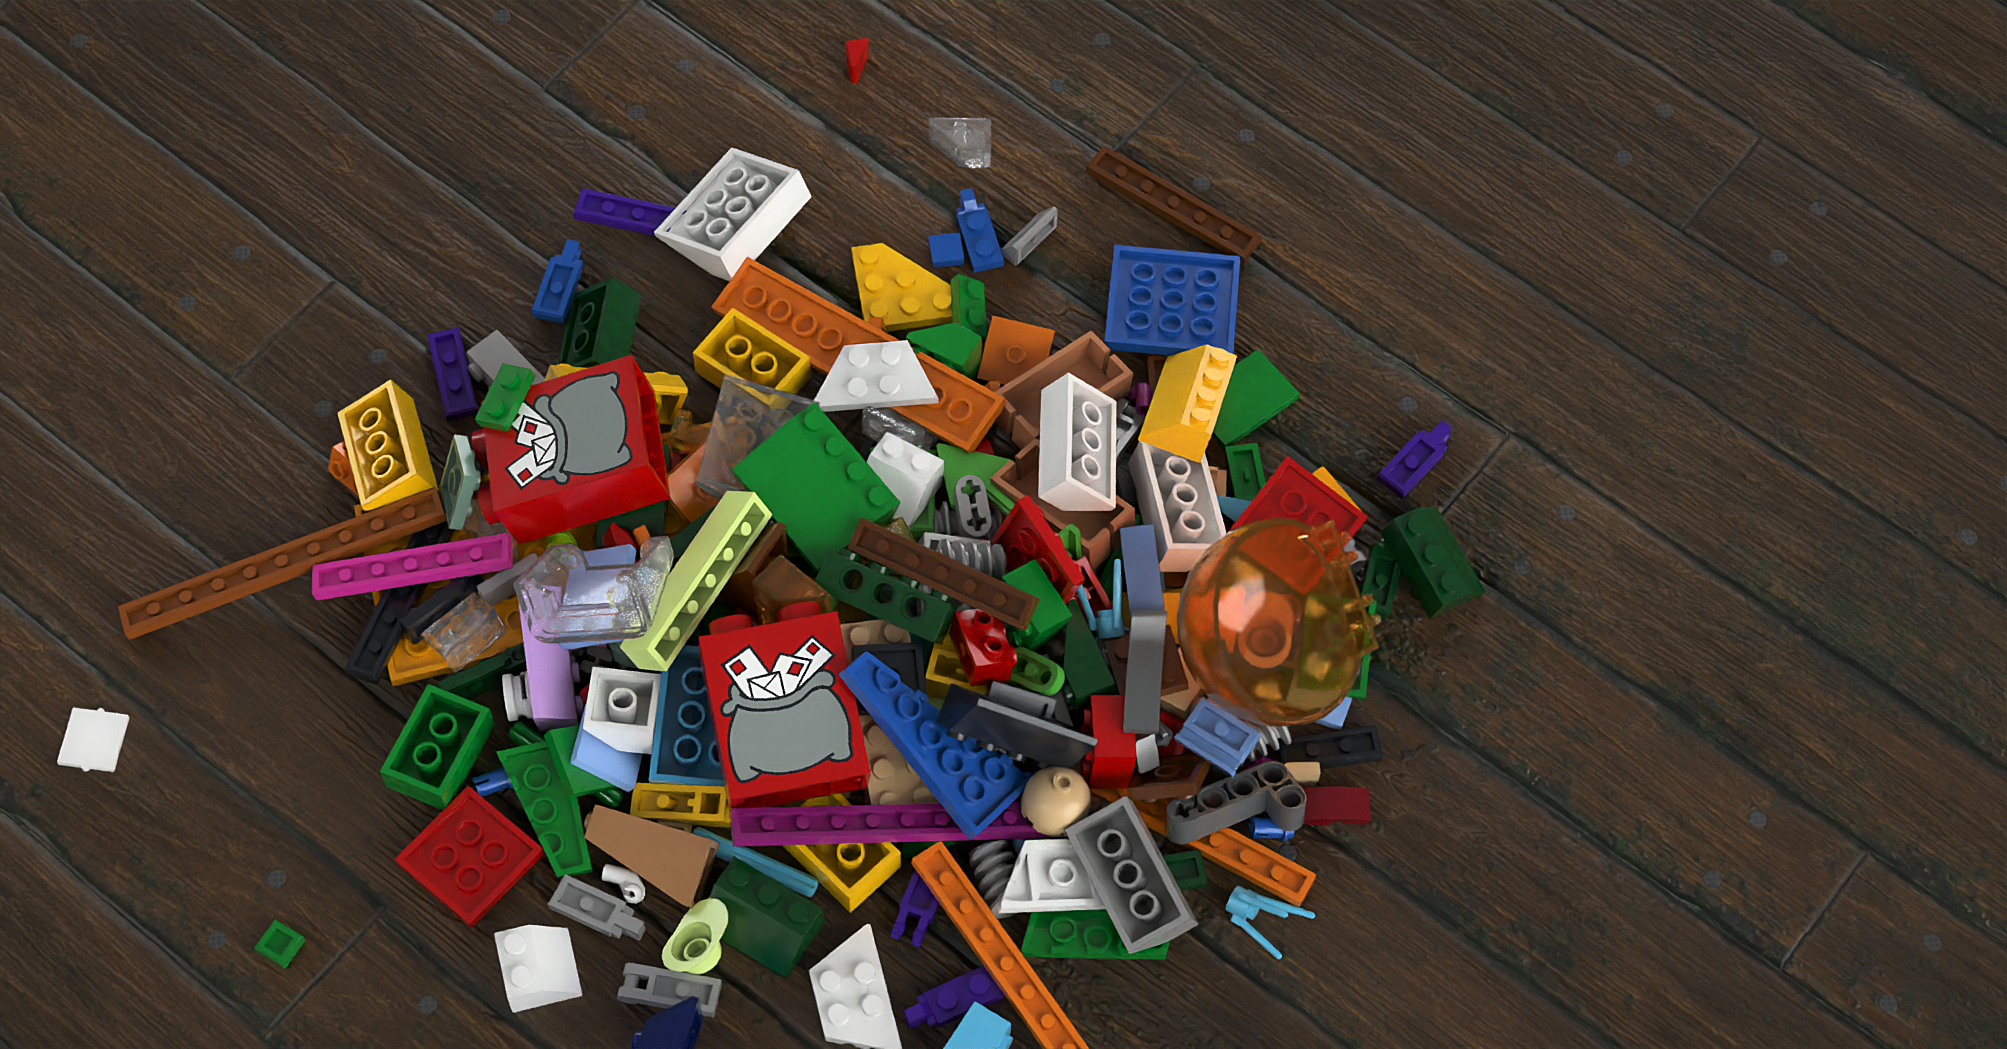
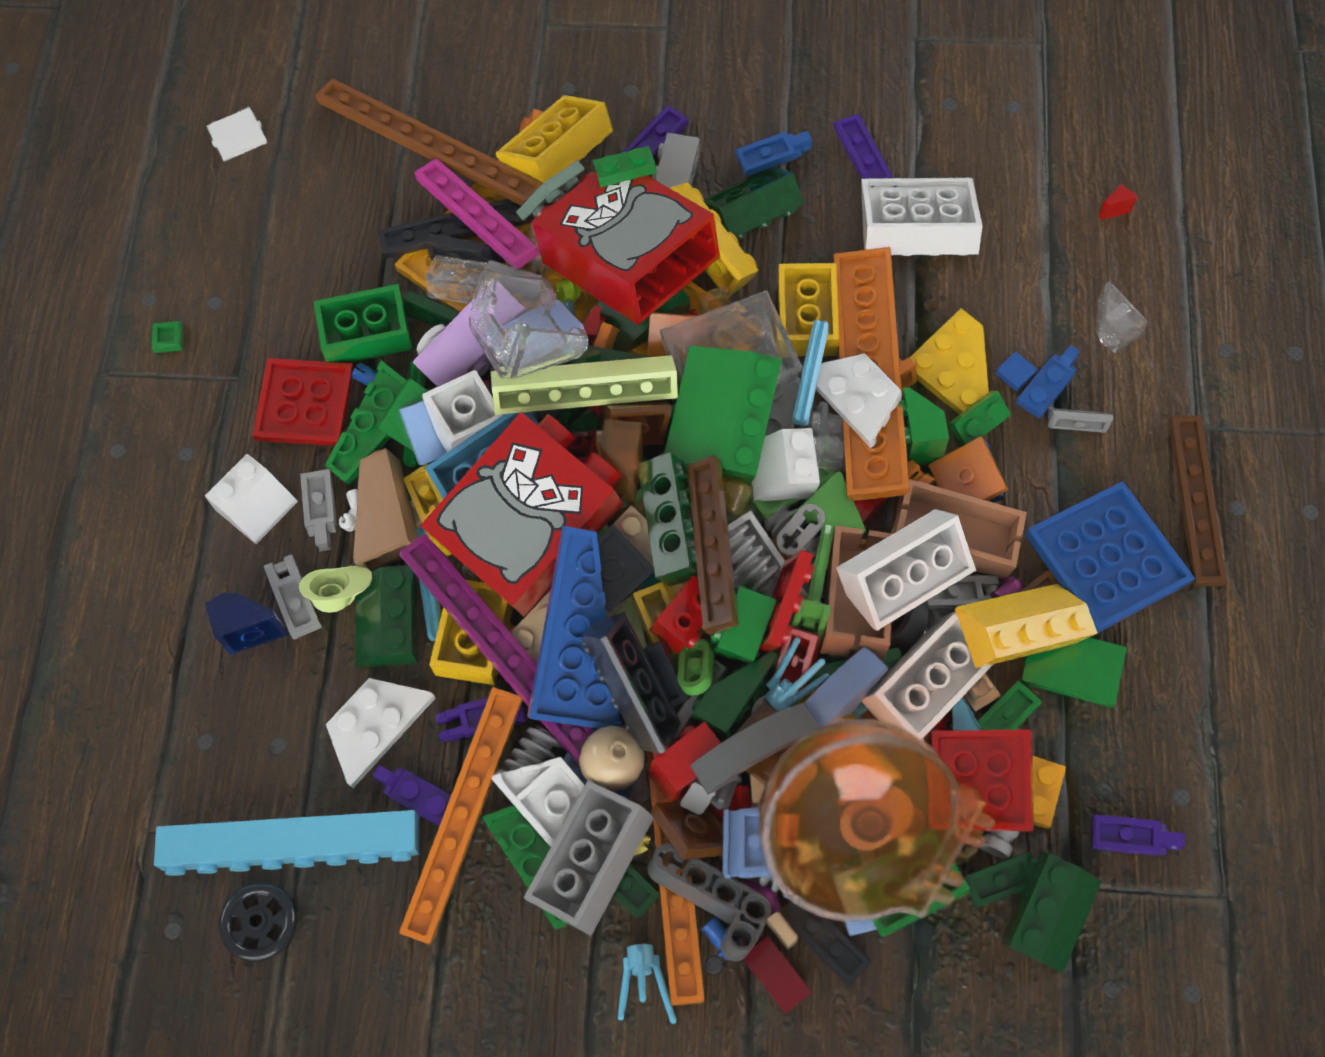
camera: 60 degrees right, 5 degrees up
(828, 399) = (810, 373): none -> medium azure axle

